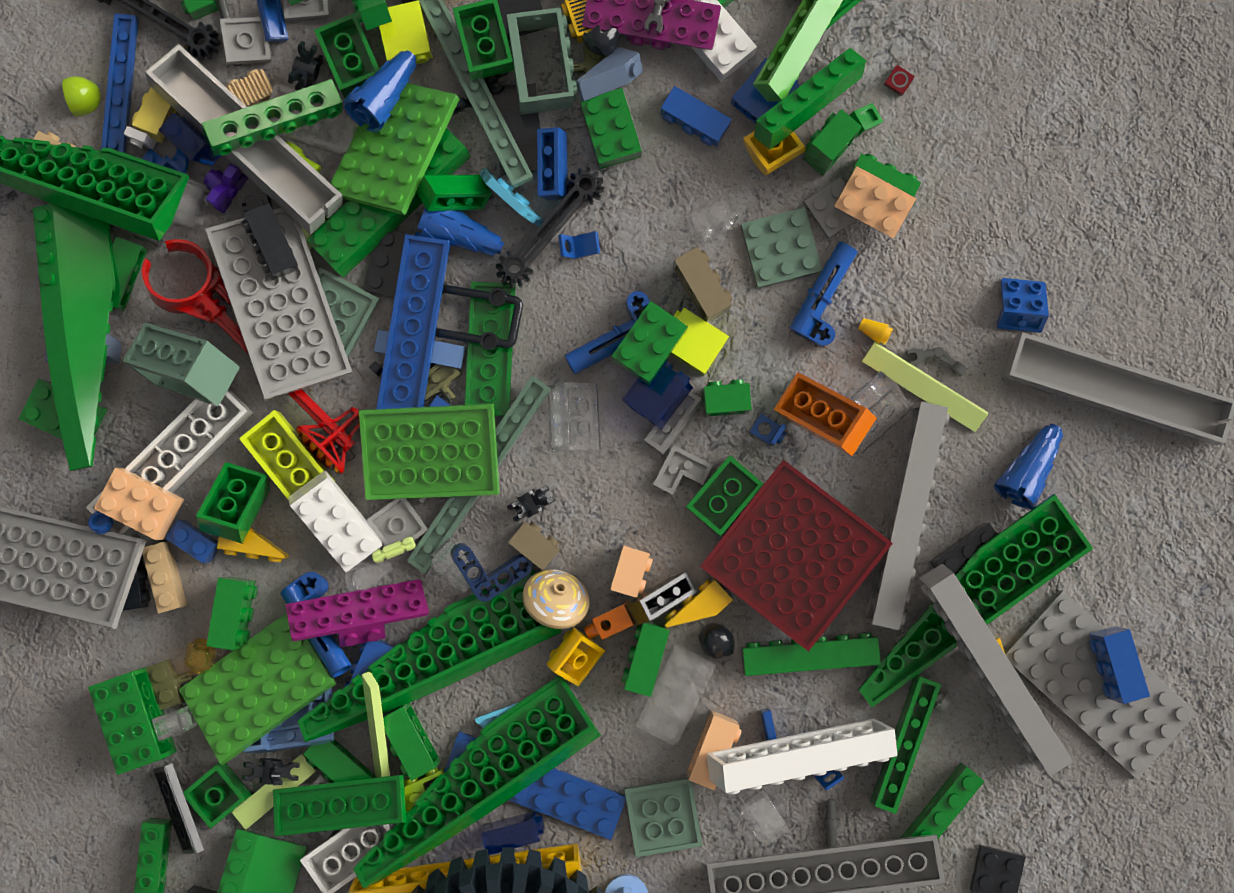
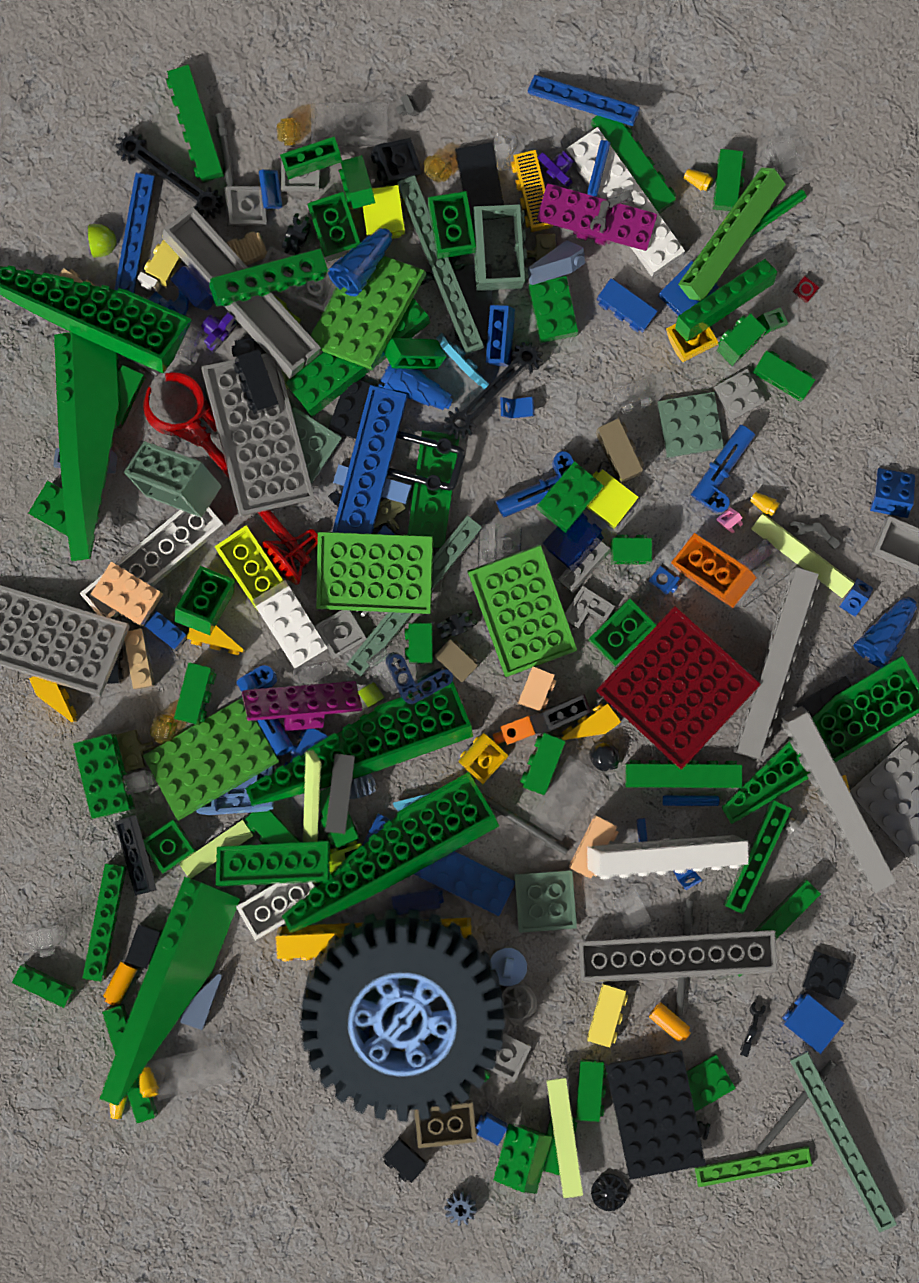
camera: 10 degrees right, 0 degrees up
(70, 632) = (54, 696): none -> yellow slope
(100, 523) = (92, 607): blue tile -> none
(270, 771) = (217, 830): black pin -> none
(393, 550) = (336, 653): yellowish green axle -> none
(408, 717) = (339, 793): none -> dark grey tile
(434, 704) = (362, 786): none -> sand blue gear
(438, 594) = (371, 694): none -> lime brick
(489, 530) = (420, 643): none -> green brick
(556, 607) = (471, 707): tan dish -> none
(601, 42) = (552, 236): black hair -> none
(605, 480) = (522, 610): none -> bright green plate
(661, 745) = (550, 841): none -> dark grey bar
(821, 683) = (679, 800): none -> blue axle
(836, 352) = (729, 519): none -> bright pink tile
(874, 202) = (773, 393): light nougat brick -> none
(991, 430) = (856, 598): none -> blue bracket

